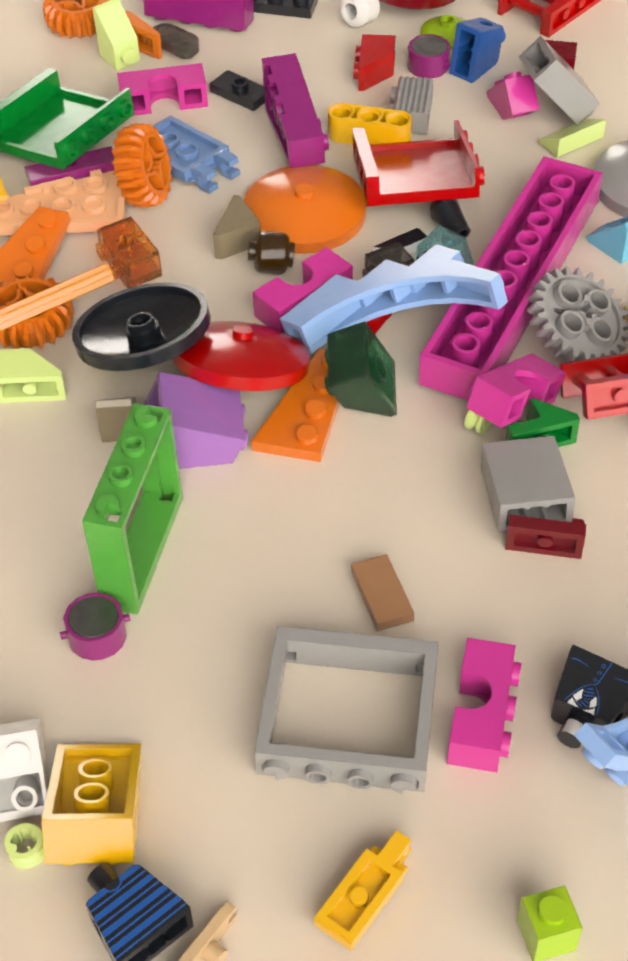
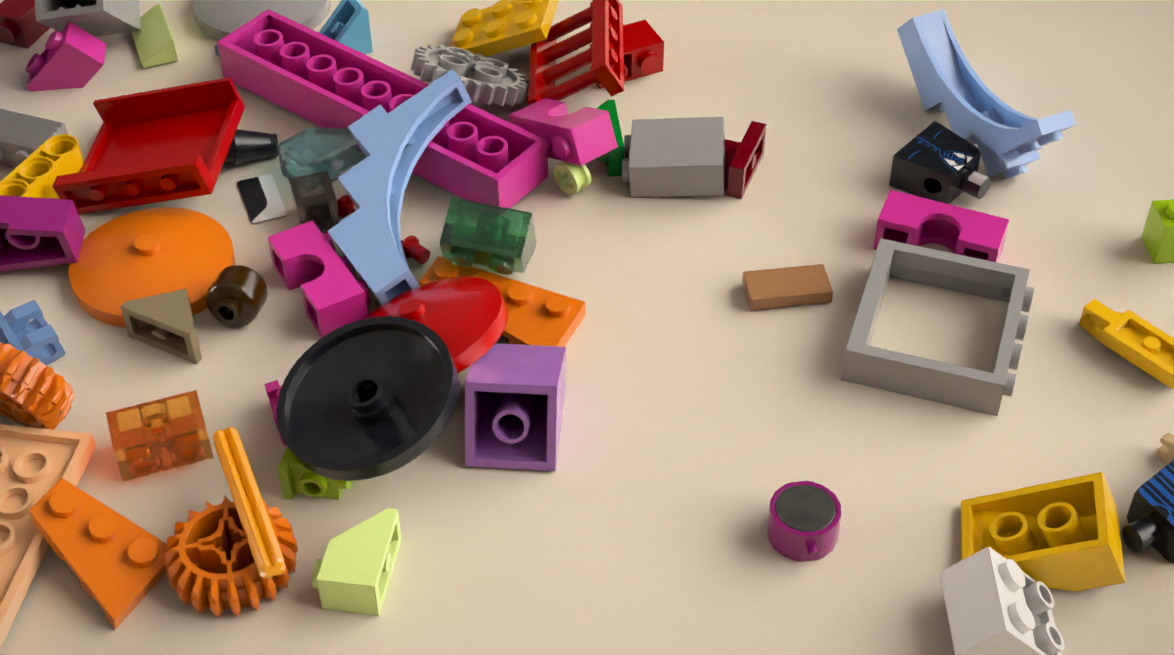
camera: 80 degrees left, 5 degrees down
(17, 835) = (1095, 596): yellowish green bush -> none
(112, 416) = (464, 472): dark tan slope -> none
(145, 457) = (702, 377): bright green window -> none

